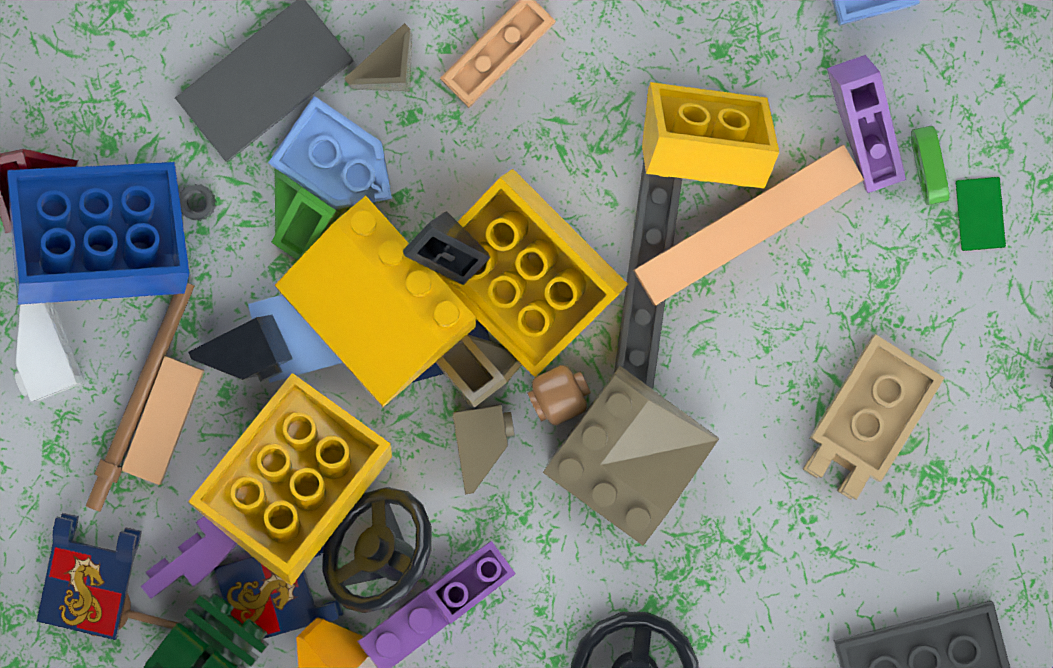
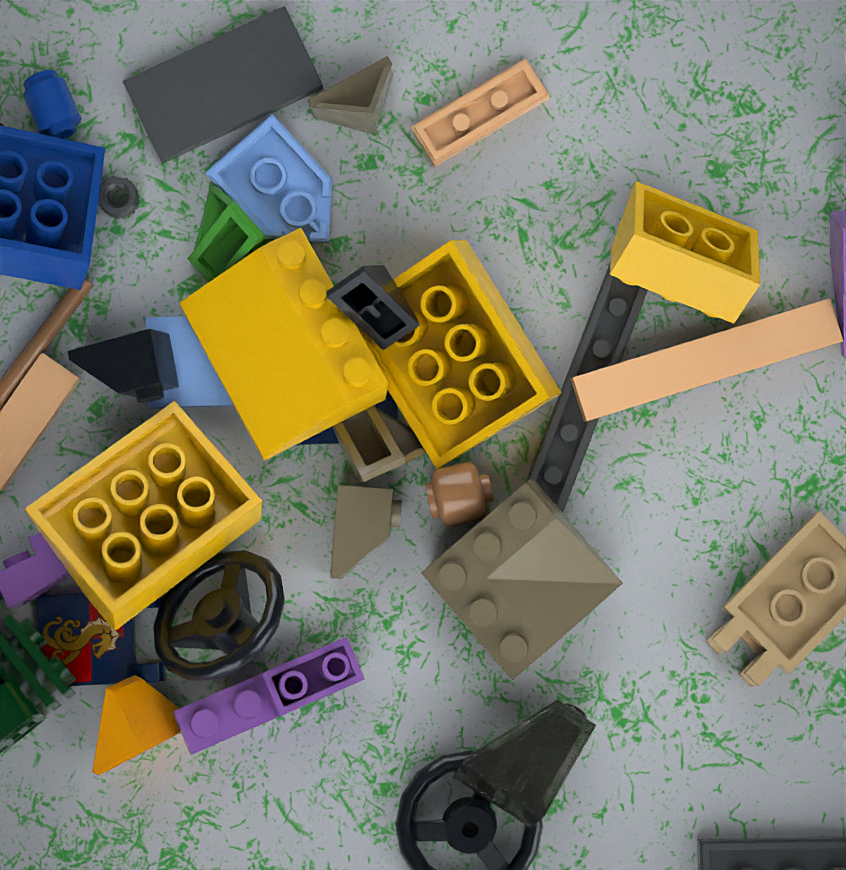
camera: 15 degrees right, 5 degrees down
(117, 135) = (51, 104): none -> blue brick
(674, 612) = (528, 762): none -> clear smoke slope

